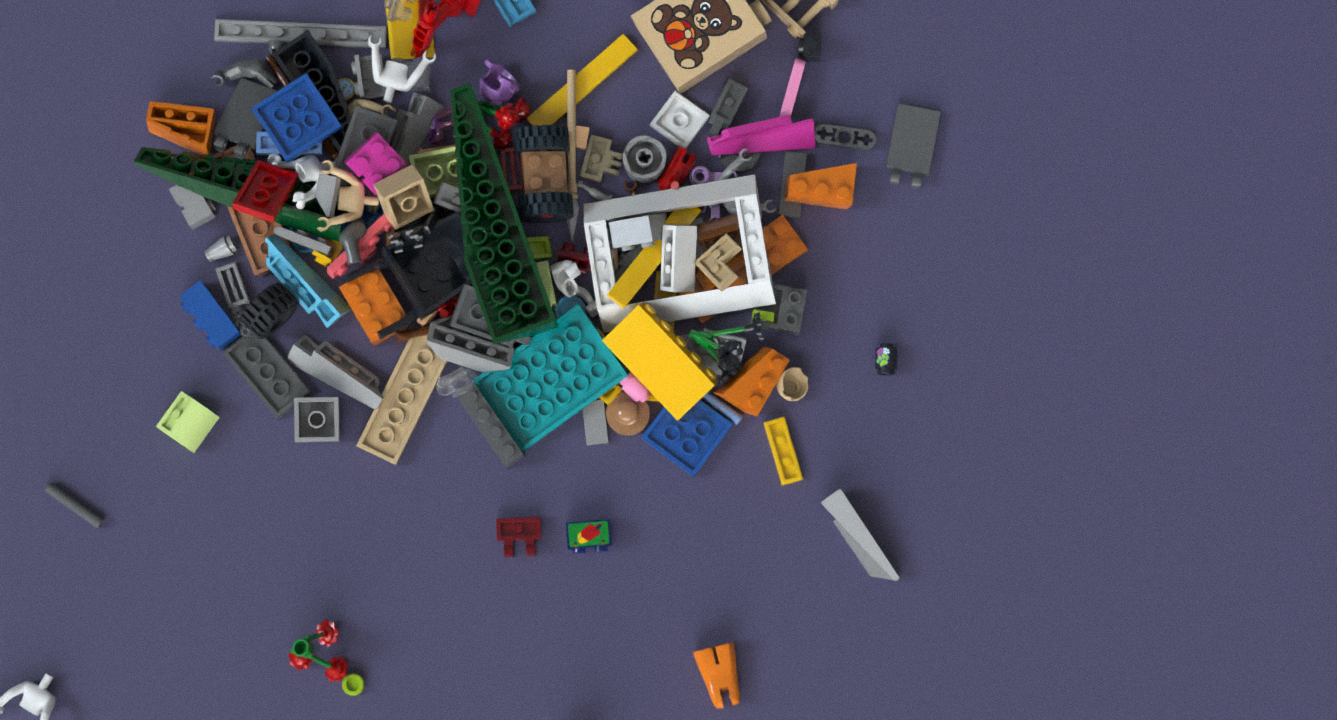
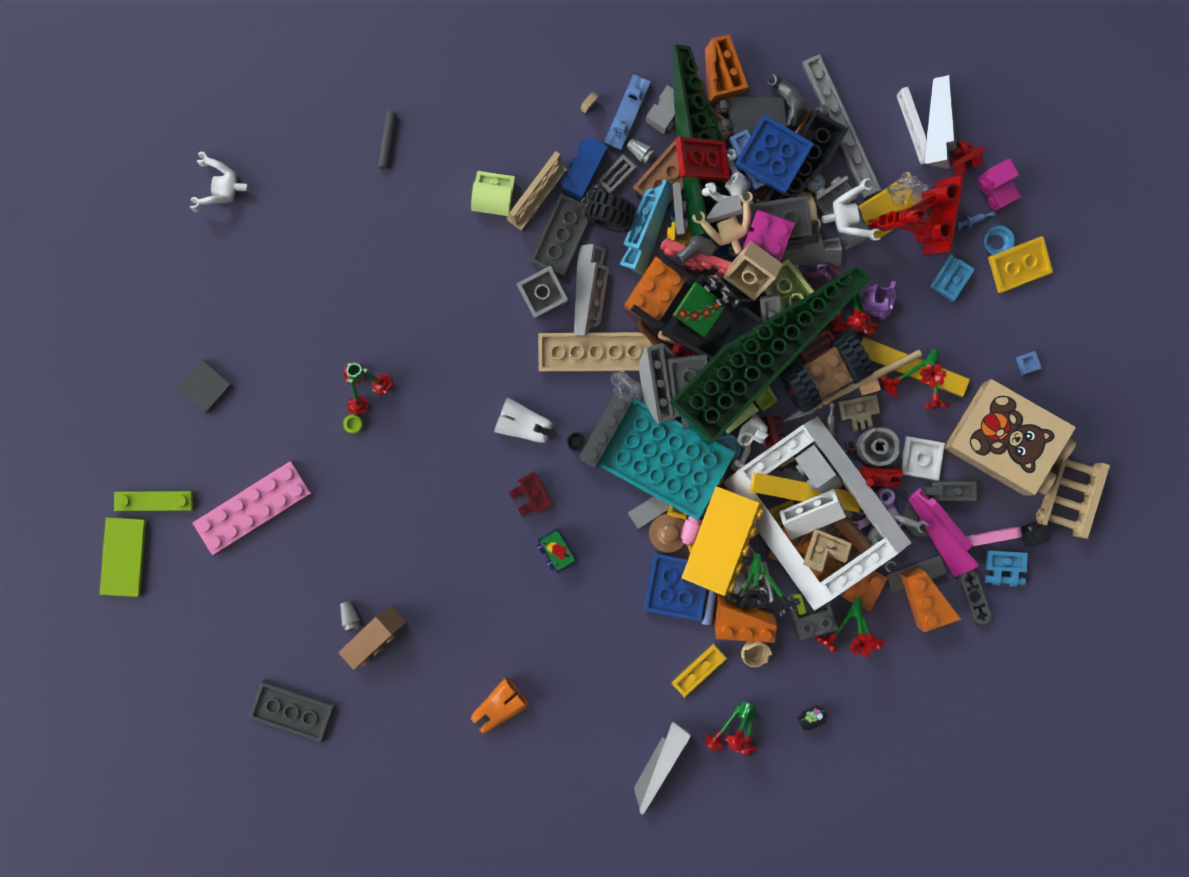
camera: 60 degrees right, 5 degrees up
(143, 276) = (589, 101): none -> tan tile
(174, 244) = (627, 113): none -> medium blue hinge
(210, 376) = (537, 192): none -> tan fence
(415, 269) = (698, 309): none -> green tile
(439, 508) = (521, 422): none -> white piece
(485, 458) = (576, 441): none -> black wheel
(596, 72) = (932, 374): none -> red plant
(824, 88) = (1006, 561): none -> dark azure plate
(826, 272) = (861, 644): none -> red plant
(867, 444) = (736, 742): none -> plant
(912, 142) = (997, 653): dark grey tile -> none

